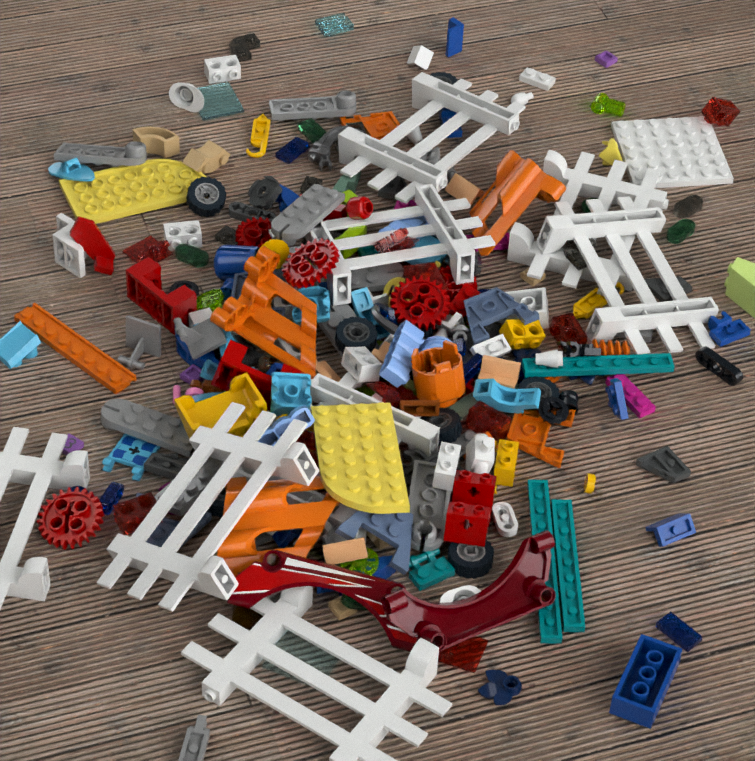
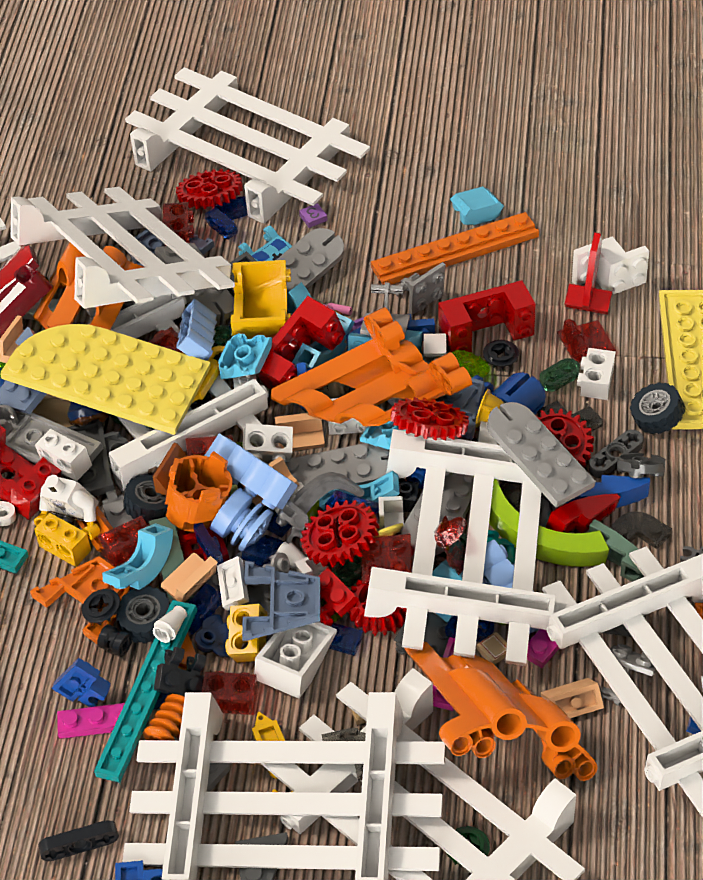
camera: 120 degrees right, 5 degrees up
(355, 333) = (318, 455): black wheel -> none
(359, 208) = (535, 520): red head -> none

